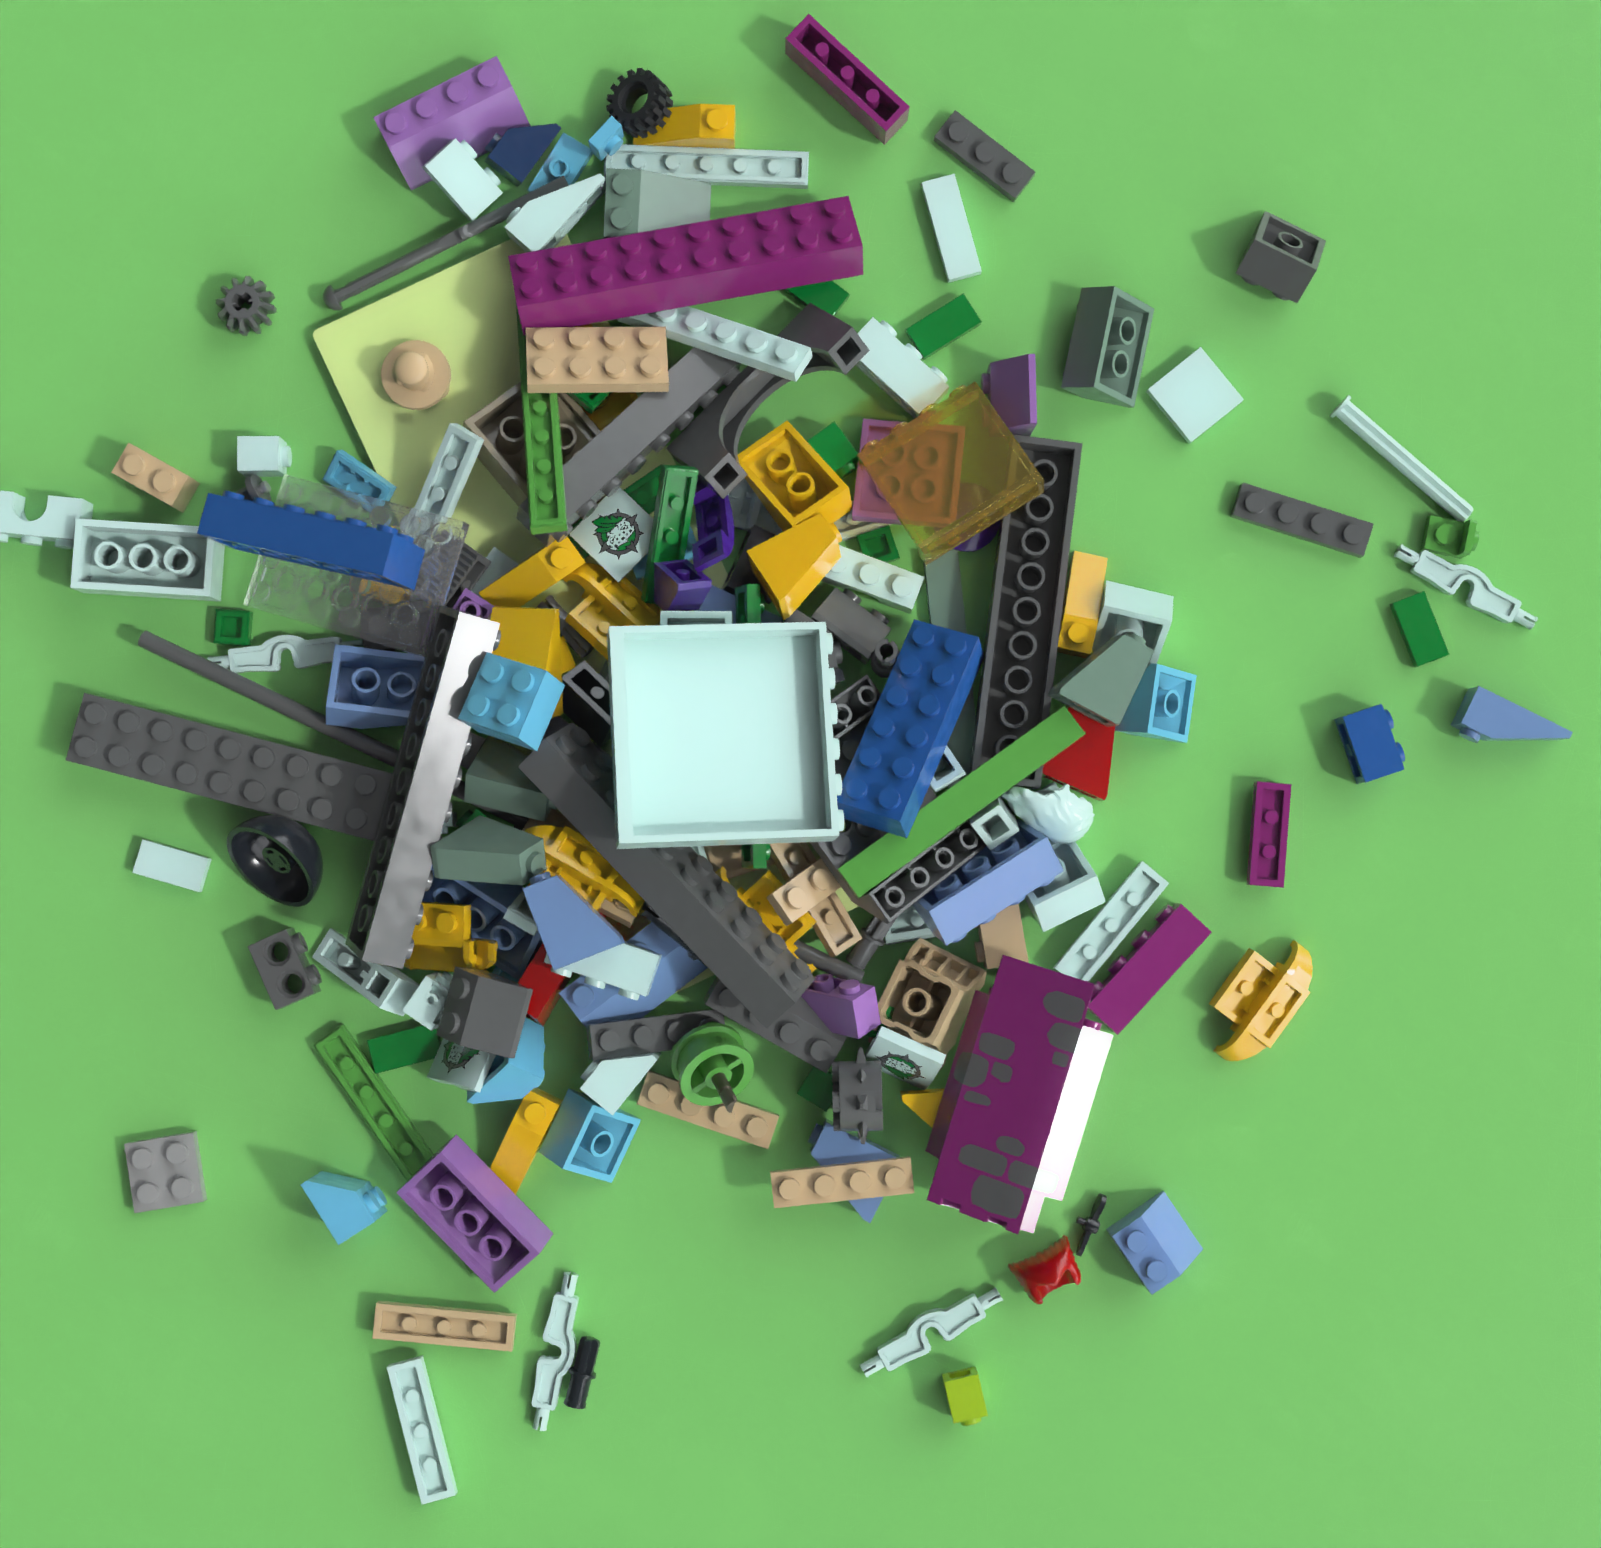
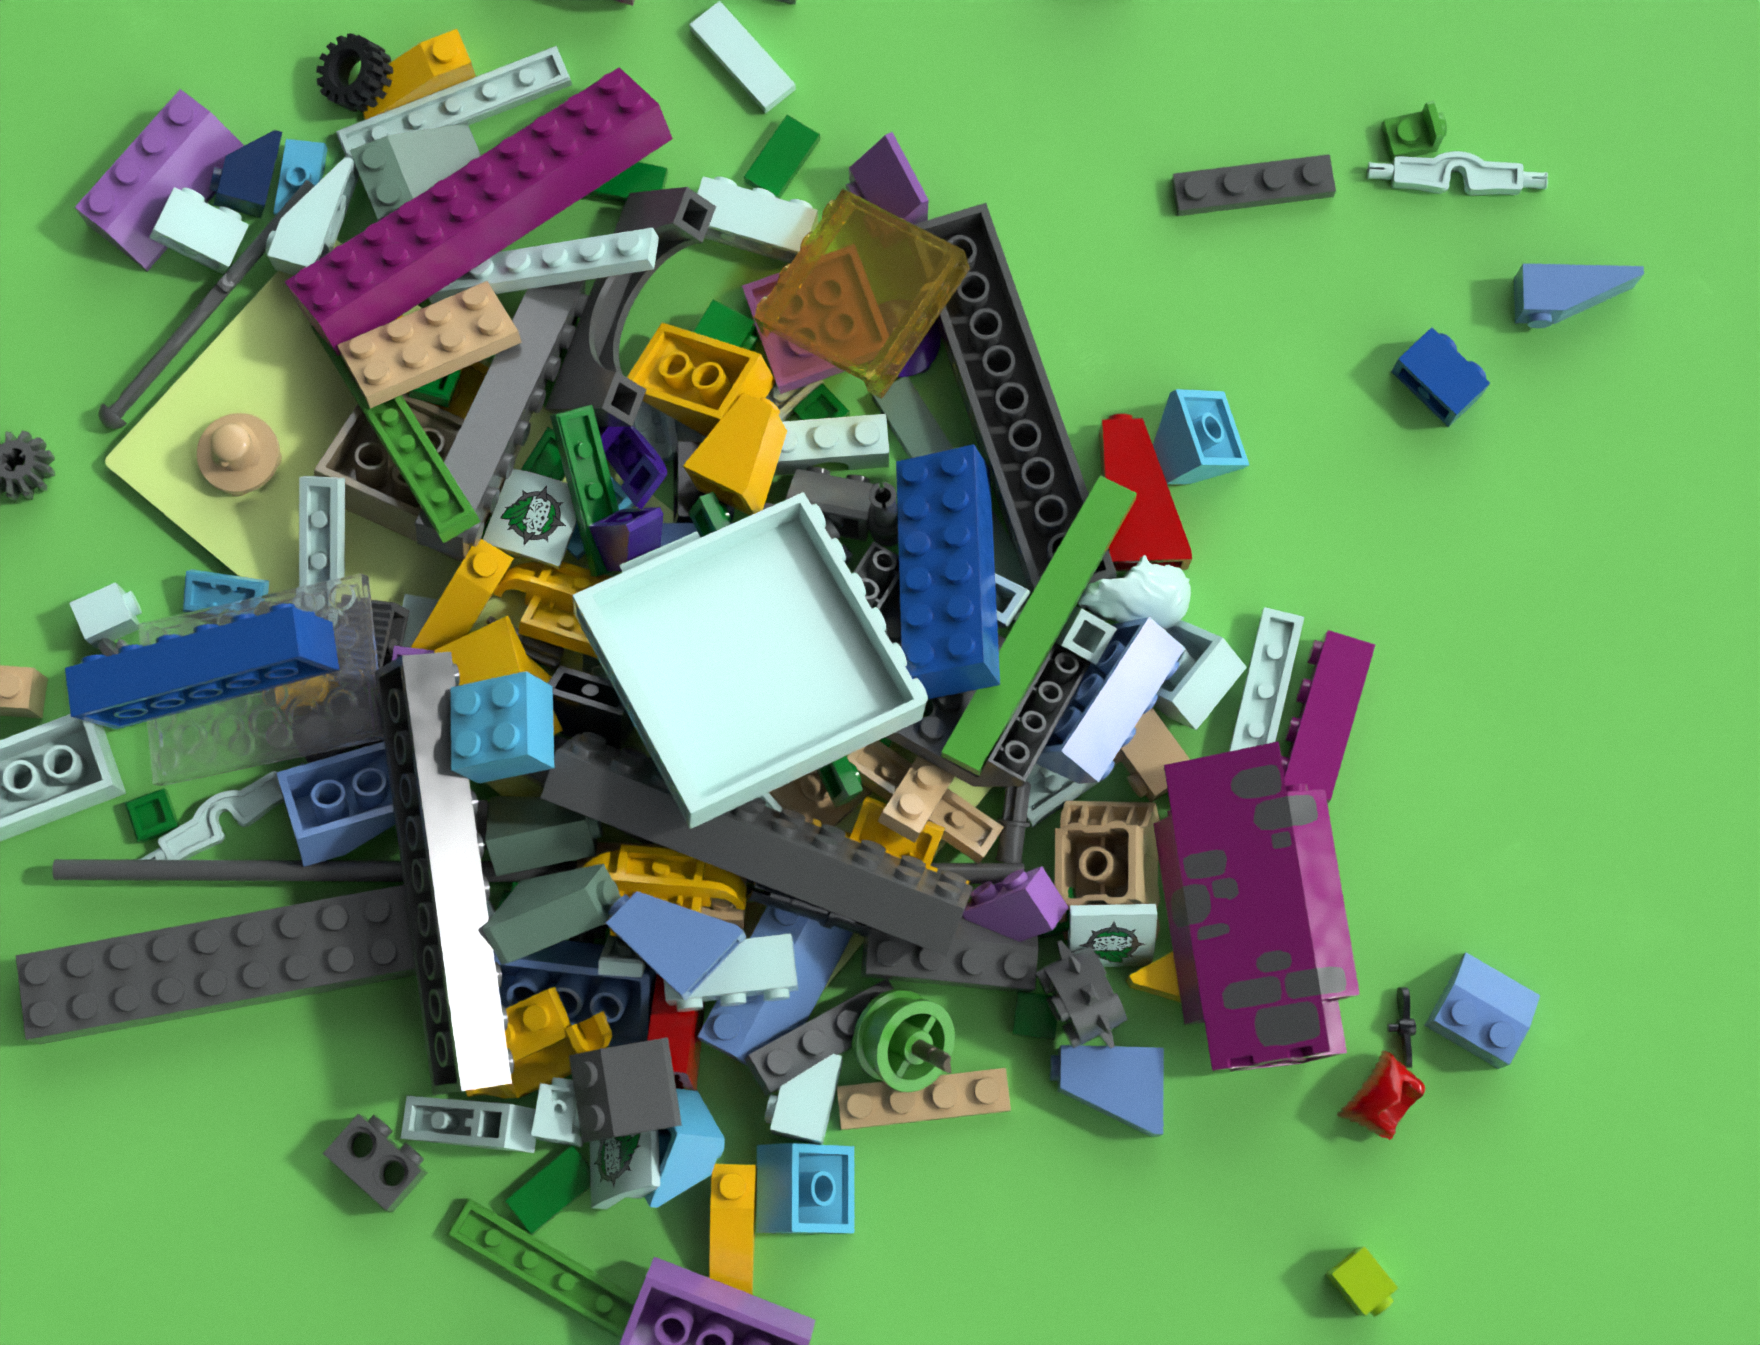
camera: 20 degrees left, 10 degrees down
(172, 865) = (196, 1109): light aqua tile -> none
(277, 858) = (313, 1040): black piece -> none
(607, 139) = (336, 122): medium azure plate -> none
(842, 1182) = (1110, 1101): tan plate -> none
(914, 1342) = (1276, 1249): light aqua piece -> none
(1081, 604) = (1068, 373): yellow slope -> none
(1106, 679) = (1131, 431): sand green slope -> none
(1107, 346) = (963, 100): sand green slope -> none
(1136, 612) = (1128, 369): light aqua slope -> none
(1194, 395) = (1079, 110): light aqua tile -> none
(1261, 1000) = (1465, 697): yellow plate -> none
(1269, 834) = (1384, 519): magenta plate -> none
(1402, 460) = (1326, 78): light aqua axle -> none
(1419, 629) = (1431, 239): green tile -> none

